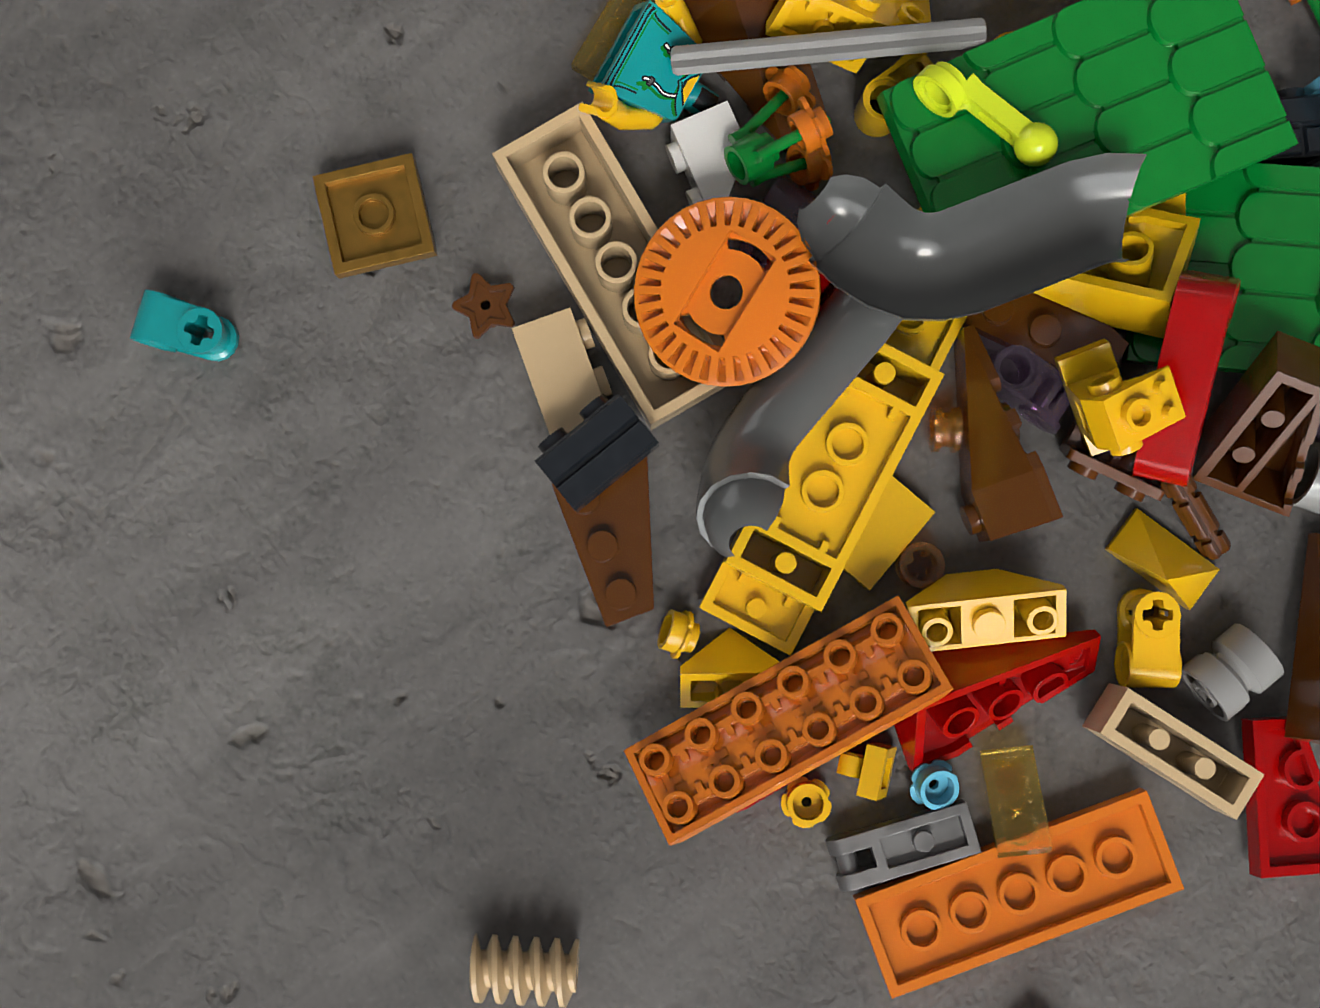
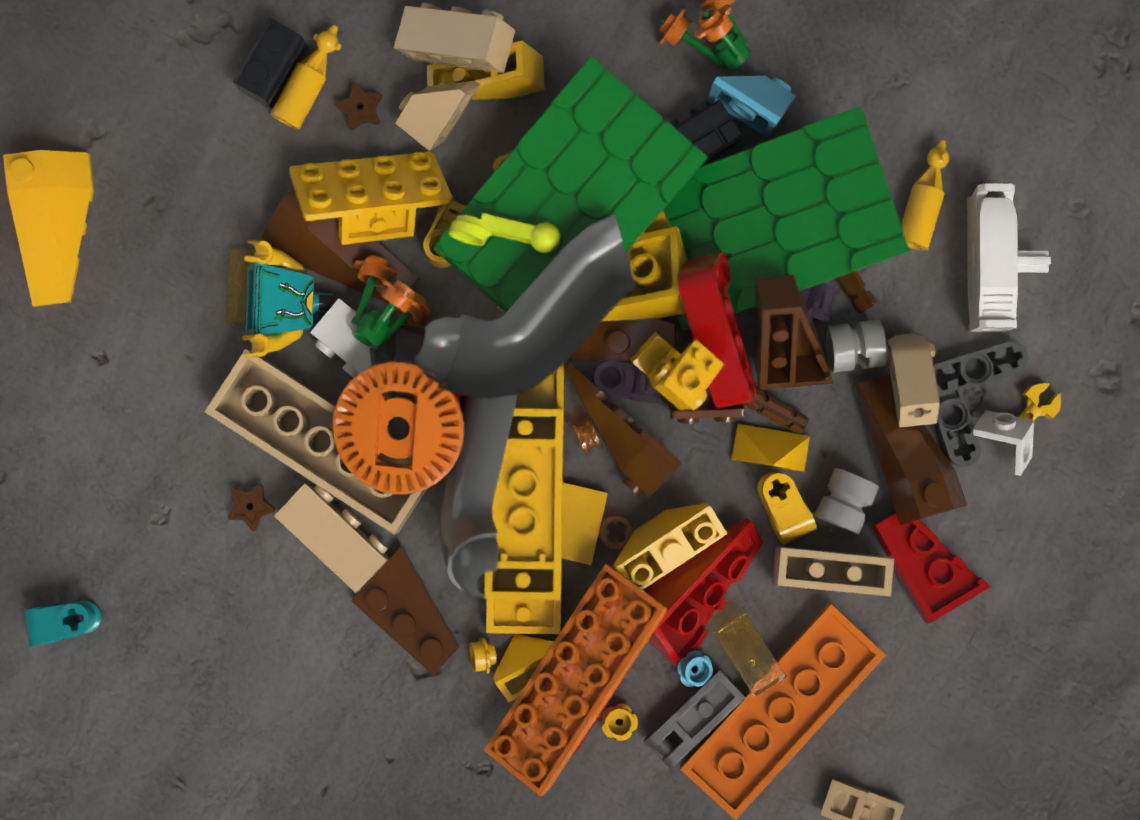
camera: 25 degrees left, 0 degrees up
(374, 215) = (148, 485): pearl gold plate -> none
(596, 450) = (367, 570): black brick -> none
(828, 46) = (384, 235): light grey axle -> none
(871, 769) = (649, 680): yellow tile -> none

